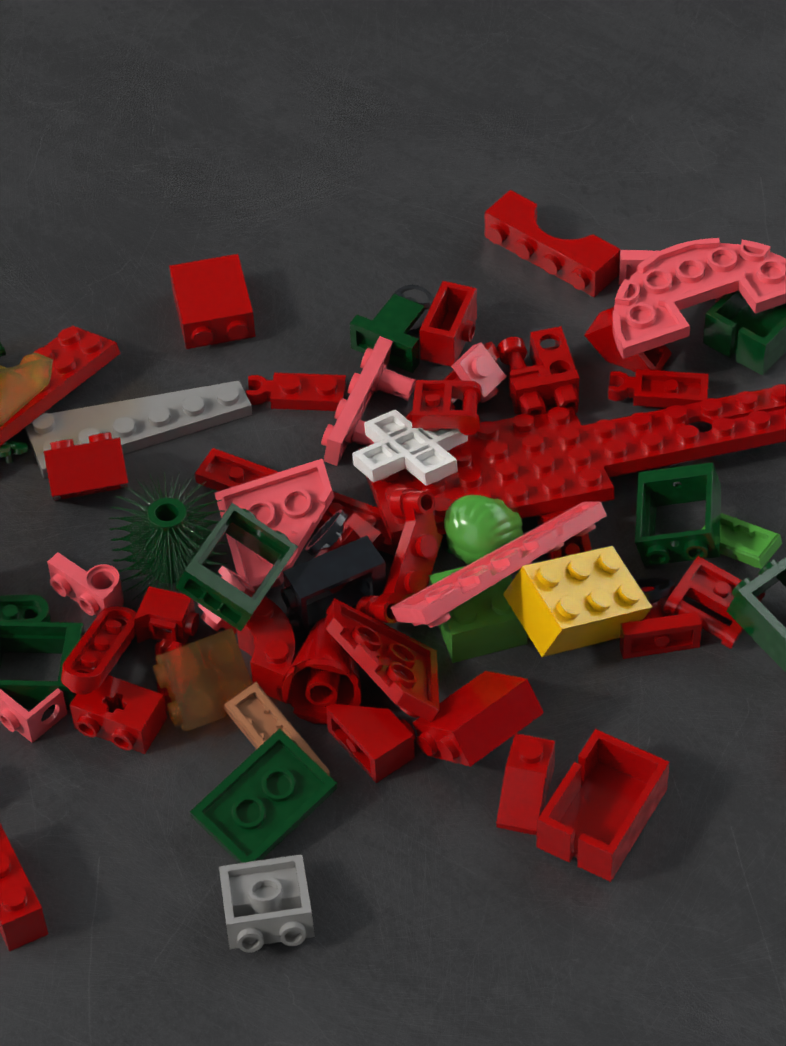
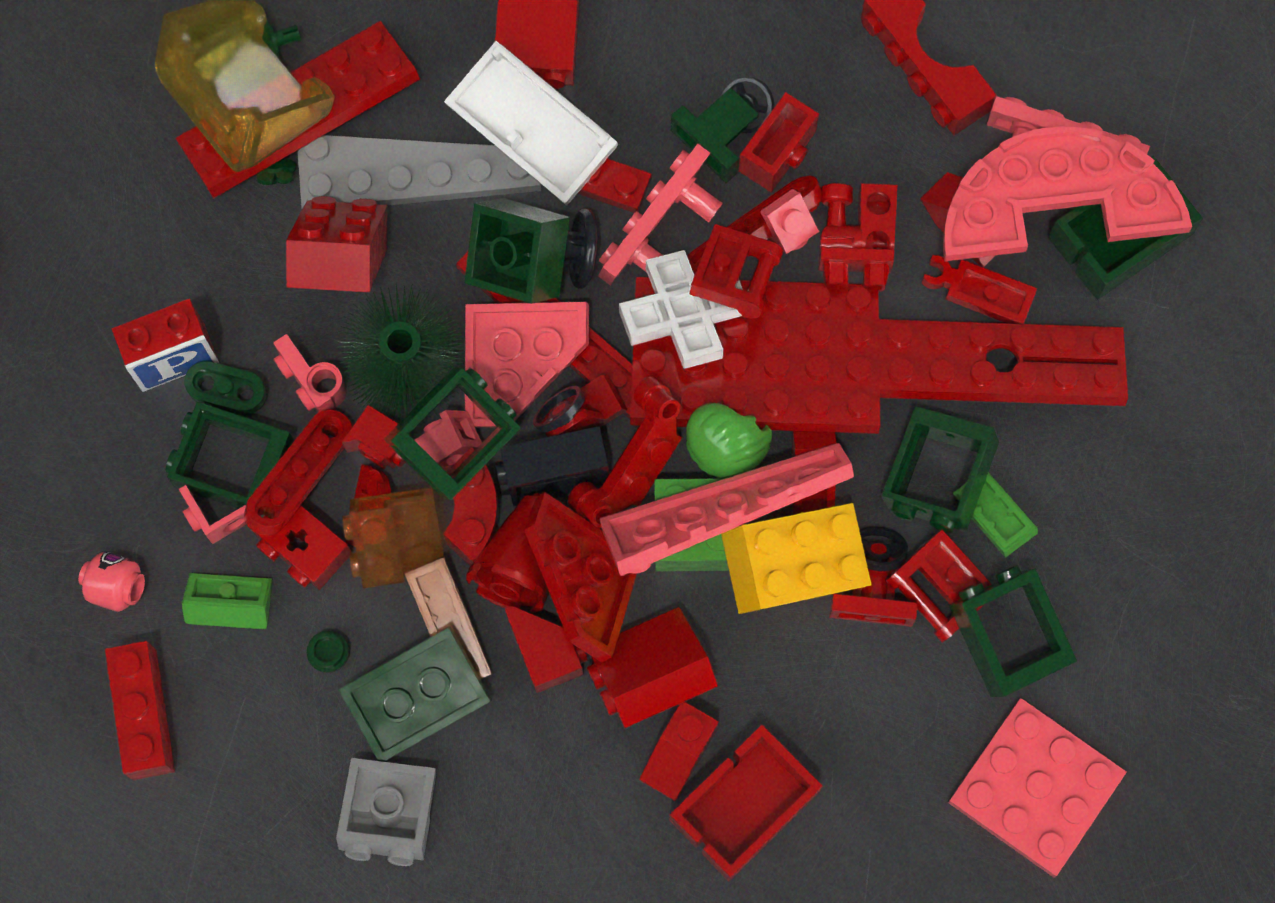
camera: 15 degrees right, 25 degrees up
(60, 782) = (227, 601): none -> bright green slope
(168, 794) = (327, 651): none -> dark green plate
(230, 354) = (531, 122): none -> white container
(259, 429) = (524, 249): none -> dark green piece

